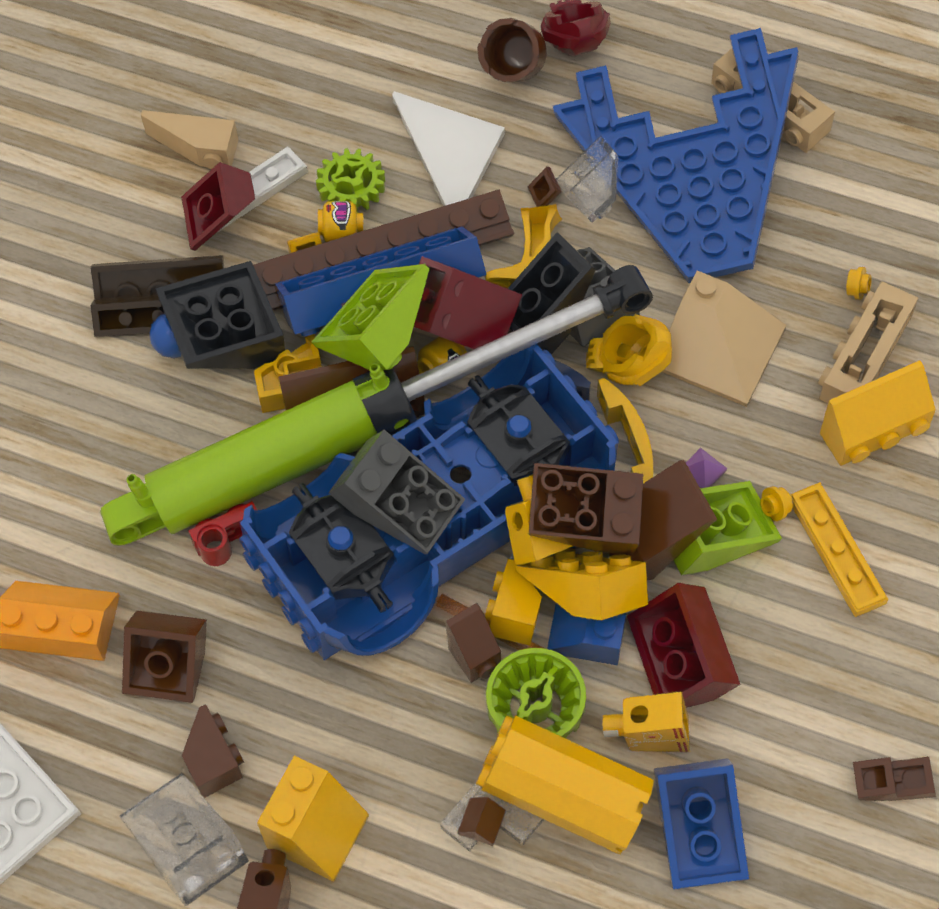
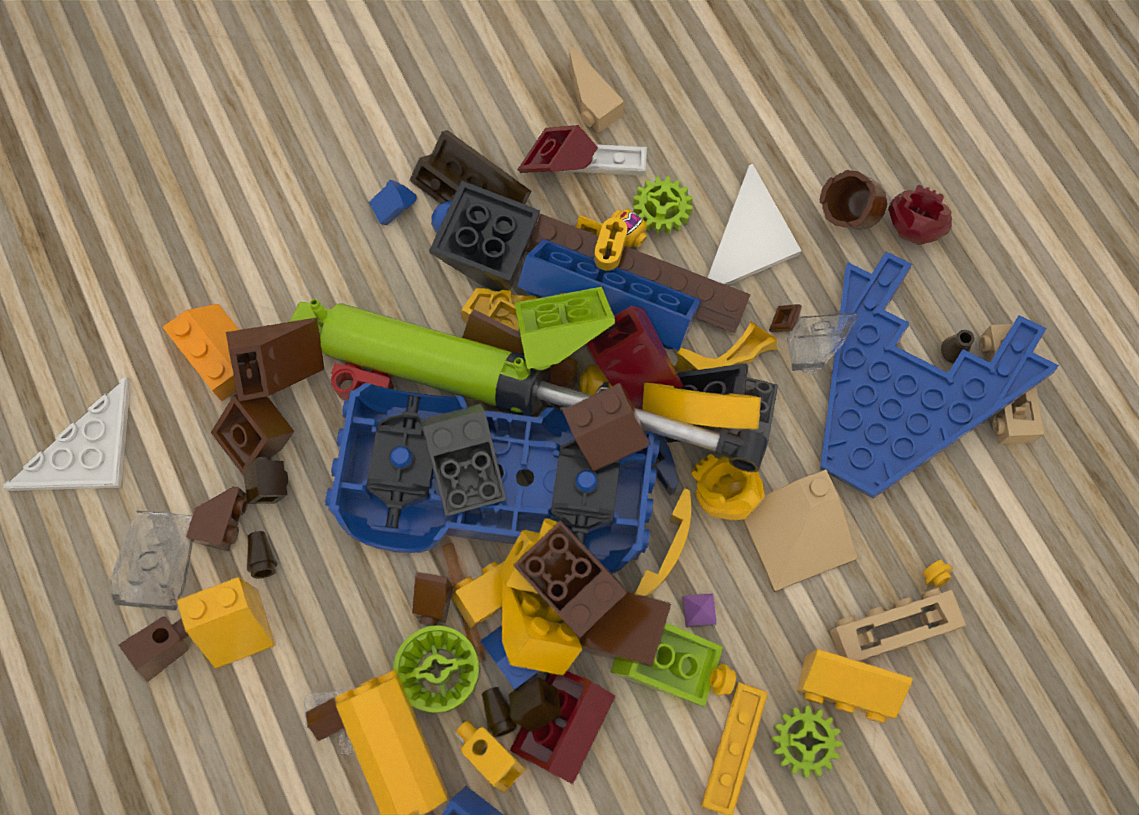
camera: 40 degrees right, 10 degrees up
(98, 365) = (392, 201): none -> blue tile
(129, 564) = (274, 356): none -> reddish brown slope
(222, 682) = (265, 481): none -> dark brown brick
(278, 748) = (260, 557): none -> dark brown cone
(338, 239) = (604, 242): none -> yellow beam
(497, 364) = (606, 427): none -> reddish brown slope
(556, 289) = (702, 407): none -> yellow slope
(619, 686) = (497, 713): none -> dark brown cone
(647, 649) = (534, 704): none -> dark brown brick
(700, 104) = (953, 345): none -> dark brown cone
(887, 504) = (806, 756): none -> lime gear

